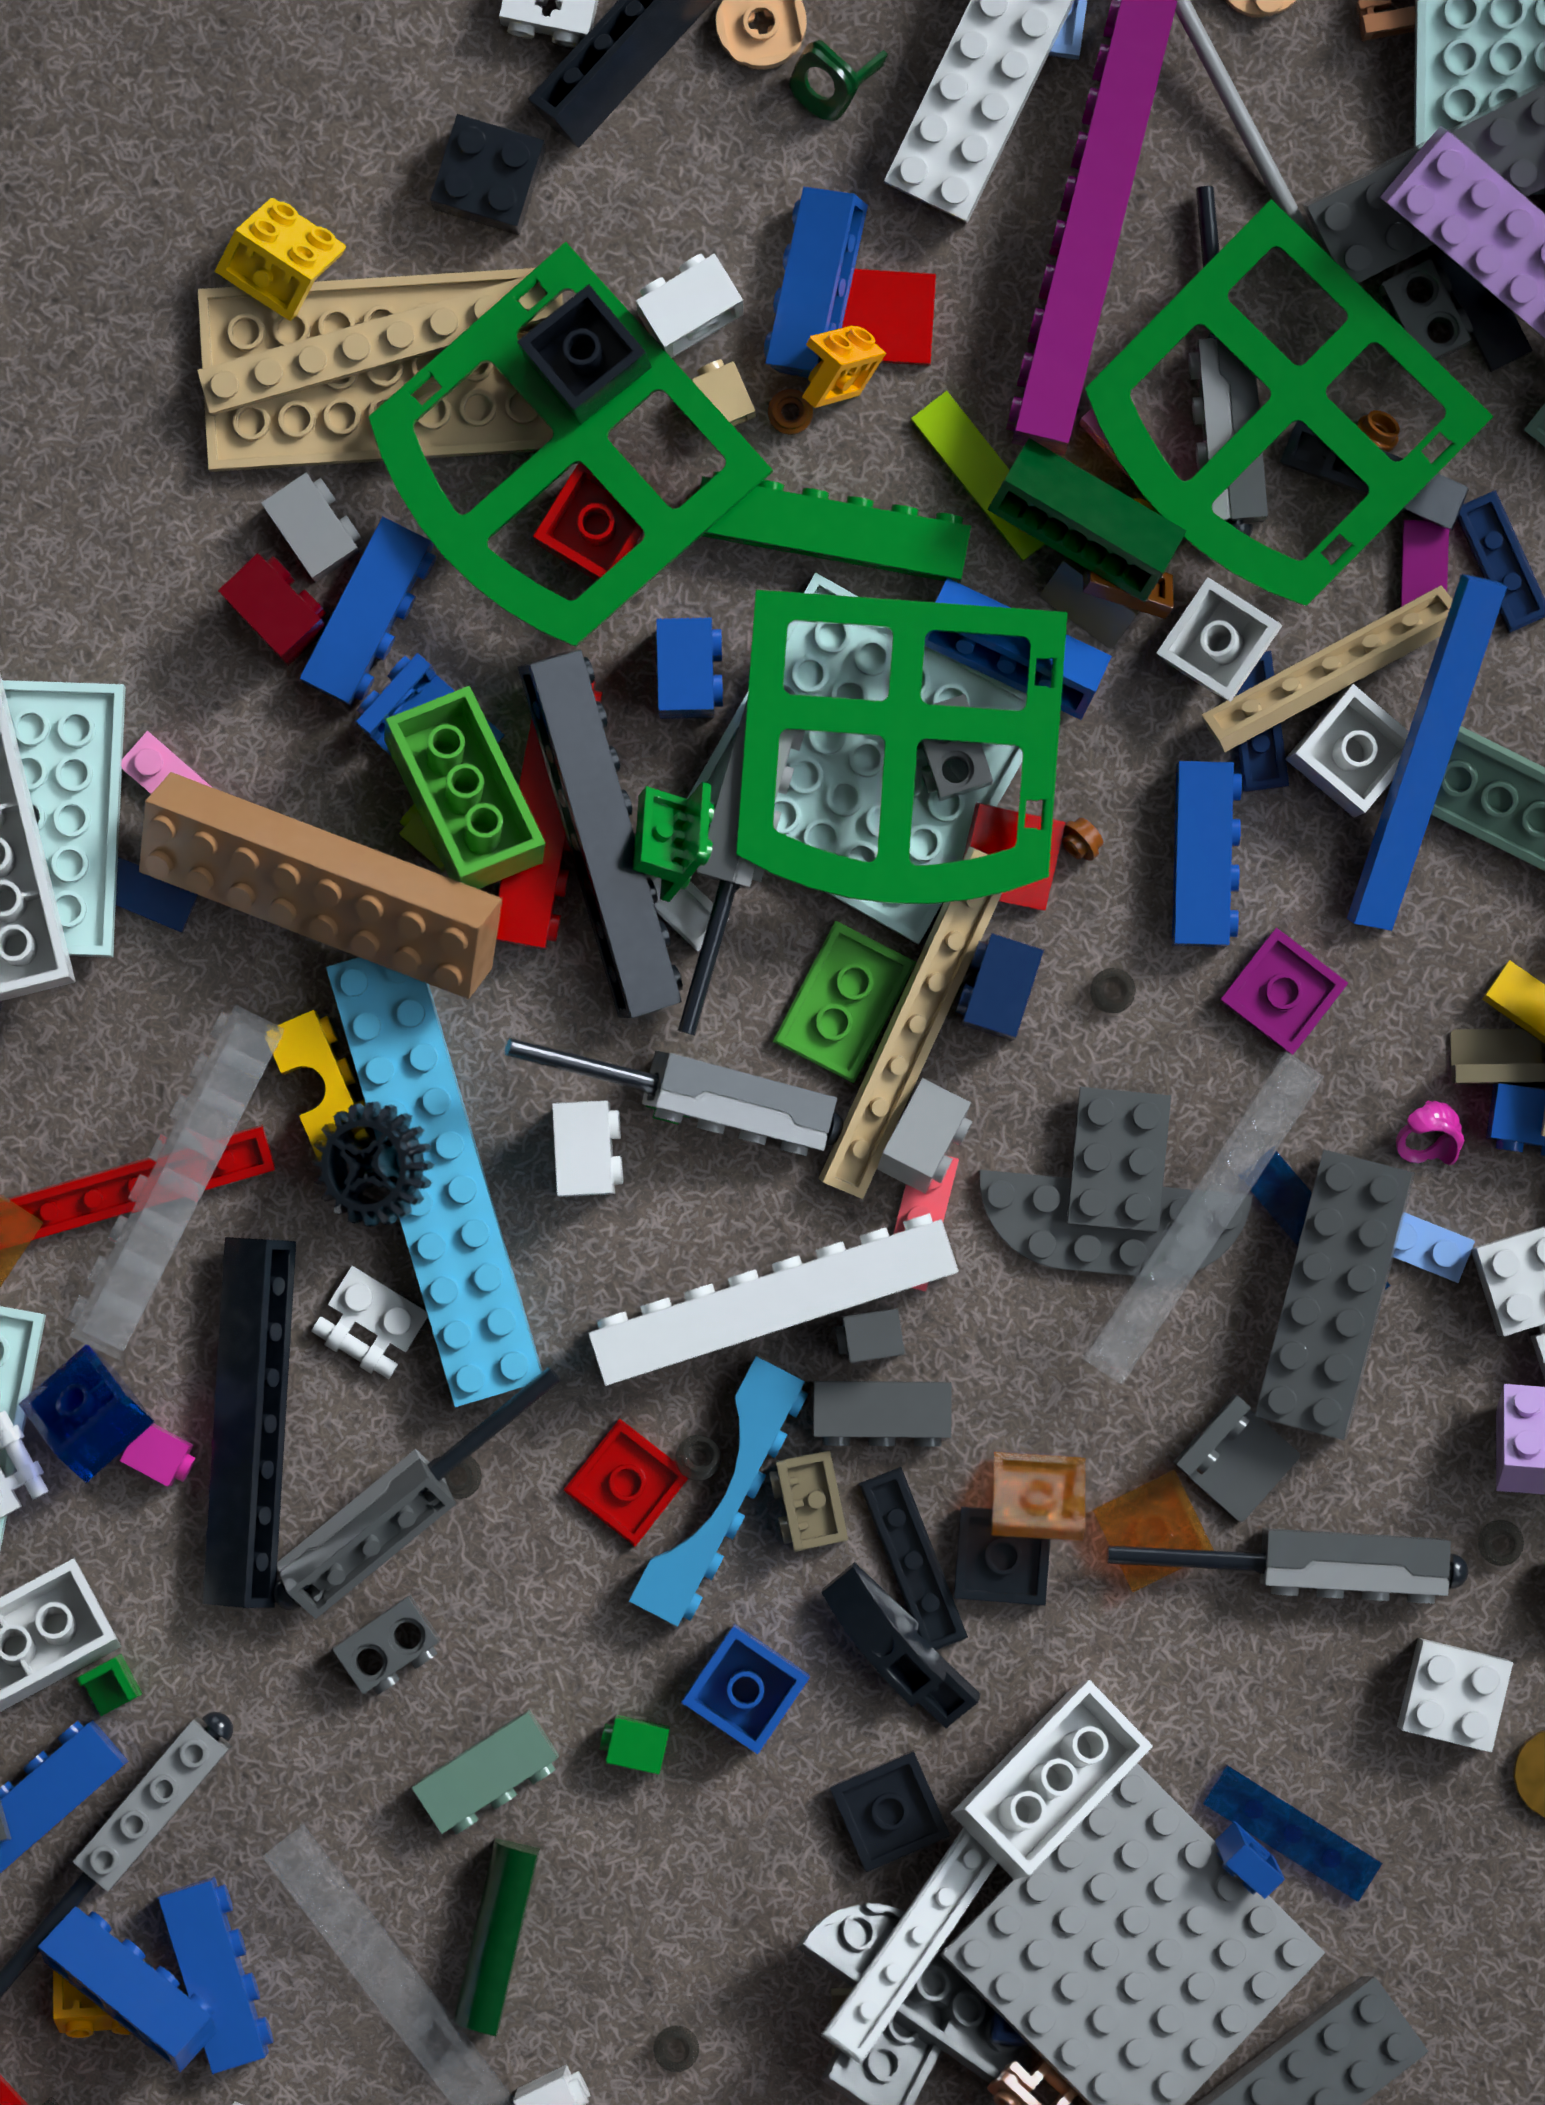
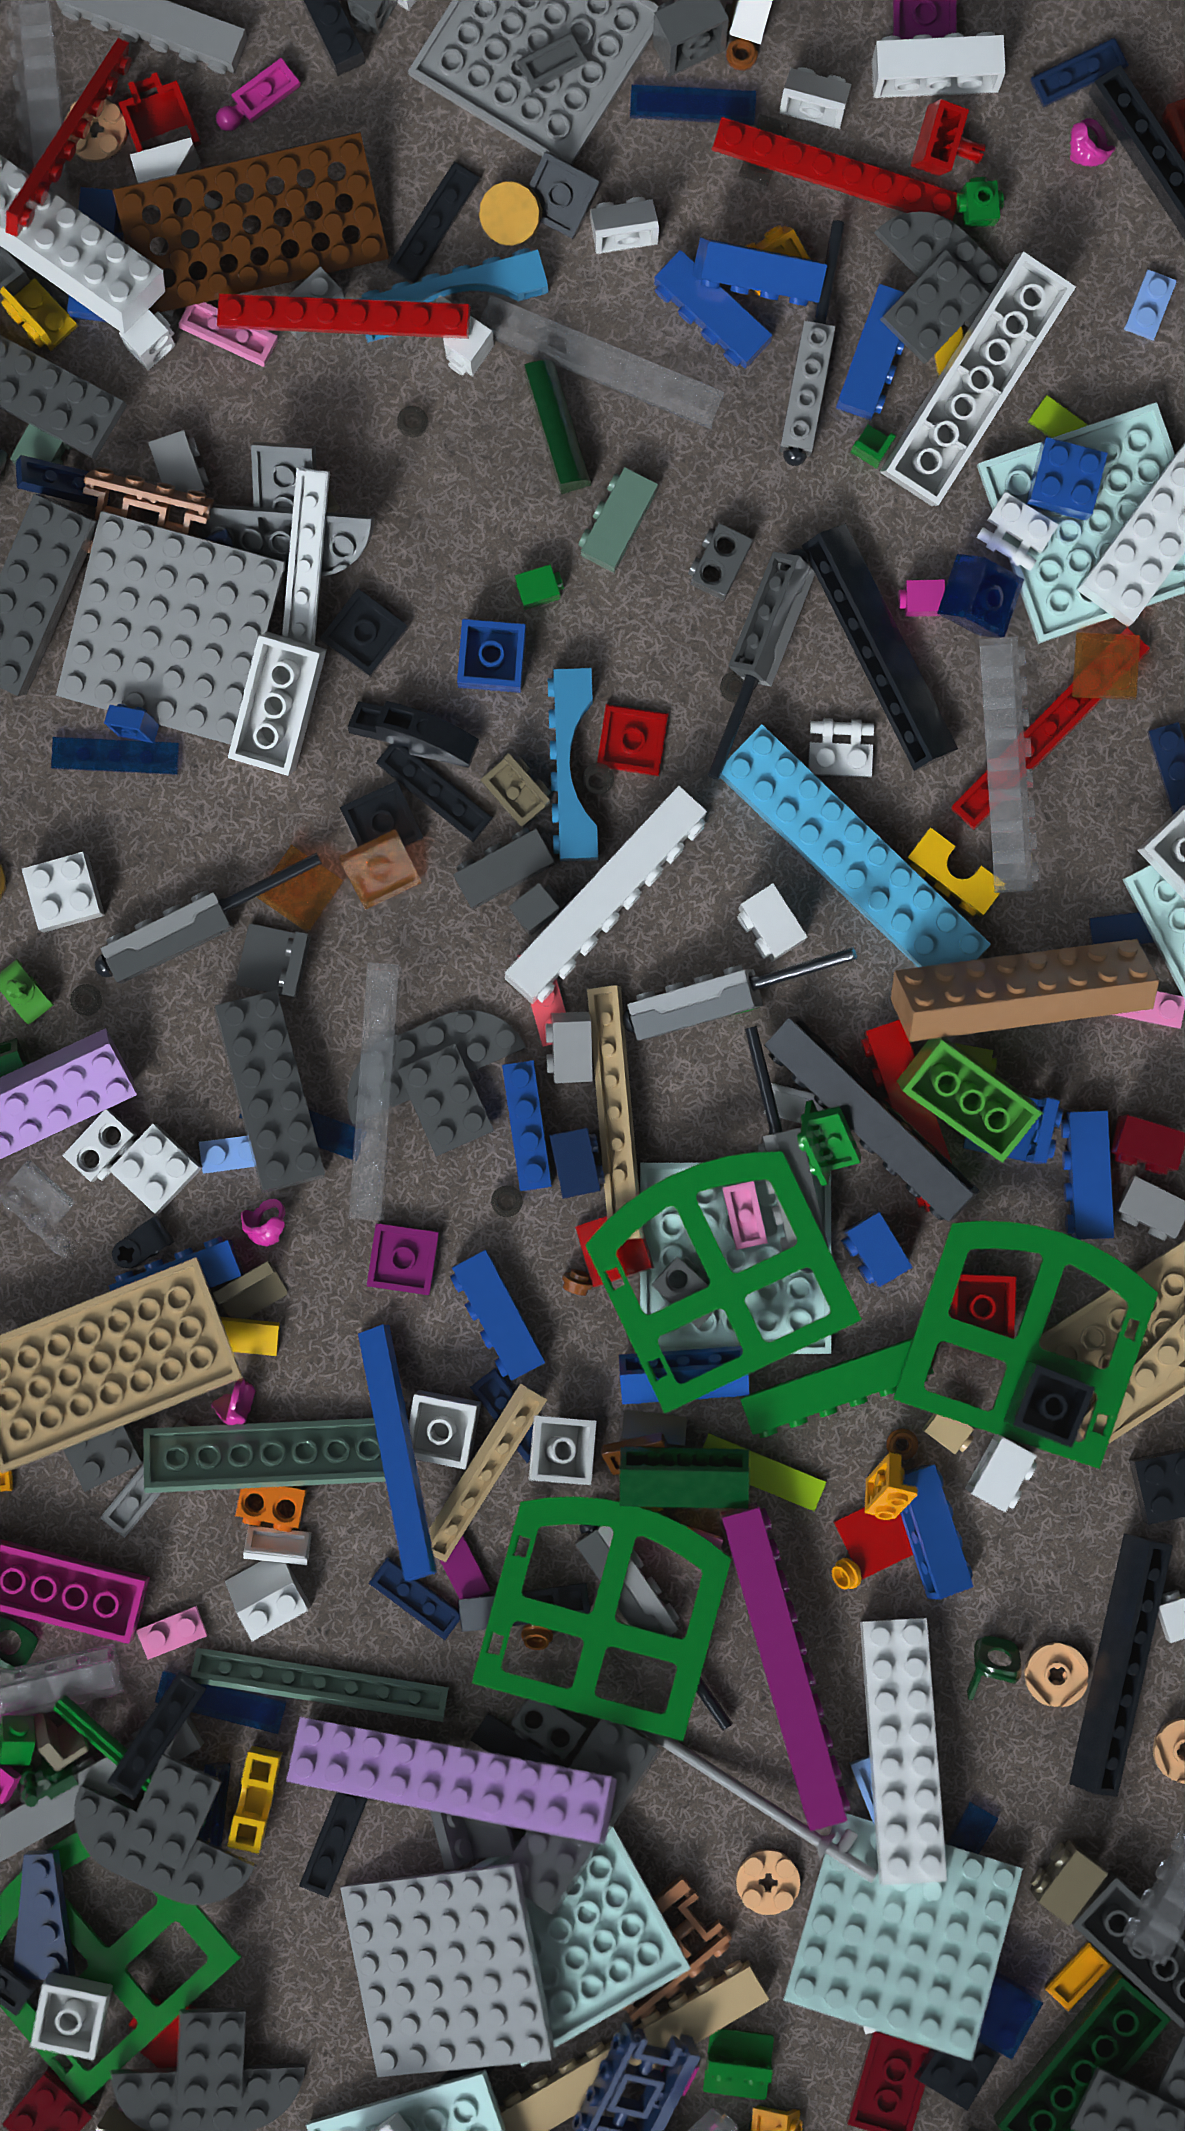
camera: 150 degrees right, 0 degrees up
(401, 1181) = (881, 845): black gear -> none
(826, 802) = (744, 1215): none -> bright pink plate
(844, 1002) = (665, 1102): bright green tile -> none
(951, 291) = (846, 1574): none -> light orange plate
(1035, 1069) = (526, 1125): none -> blue brick

